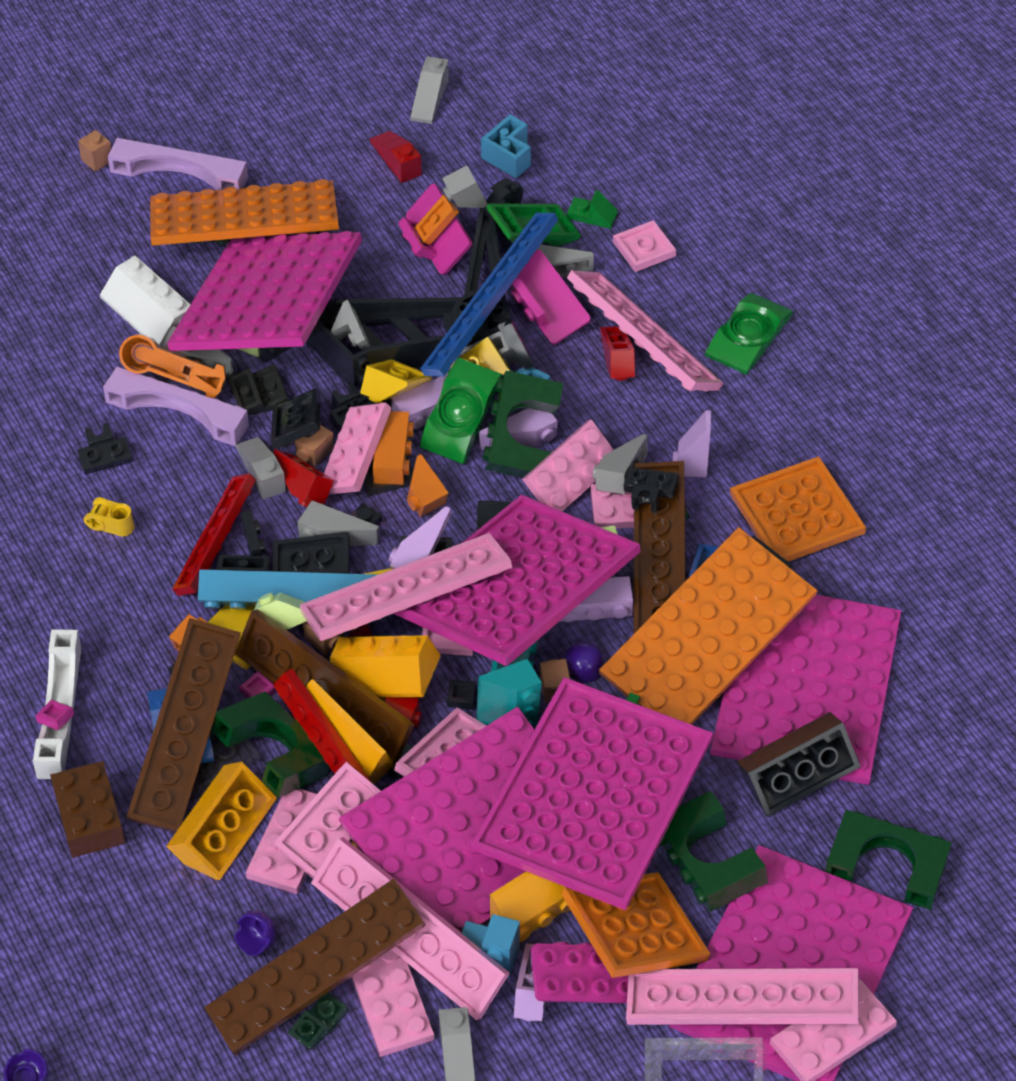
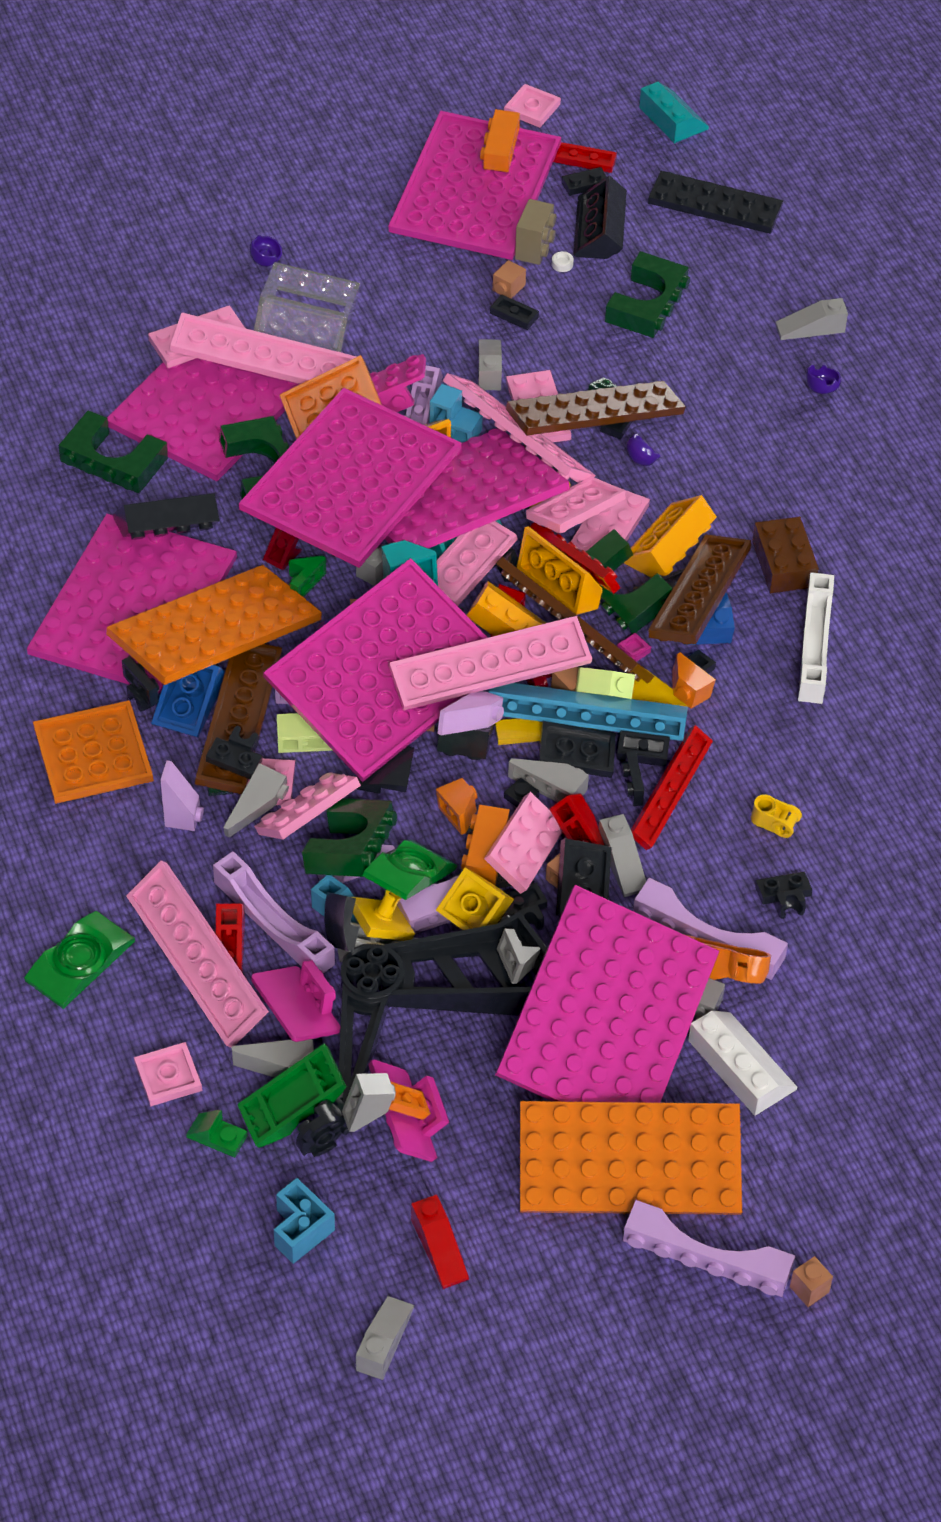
camera: 175 degrees left, 0 degrees up
(54, 714) = (817, 624): dark pink tile -> none
(489, 295) = (357, 971): blue plate -> none
(616, 392) = (242, 886): none -> lavender arch

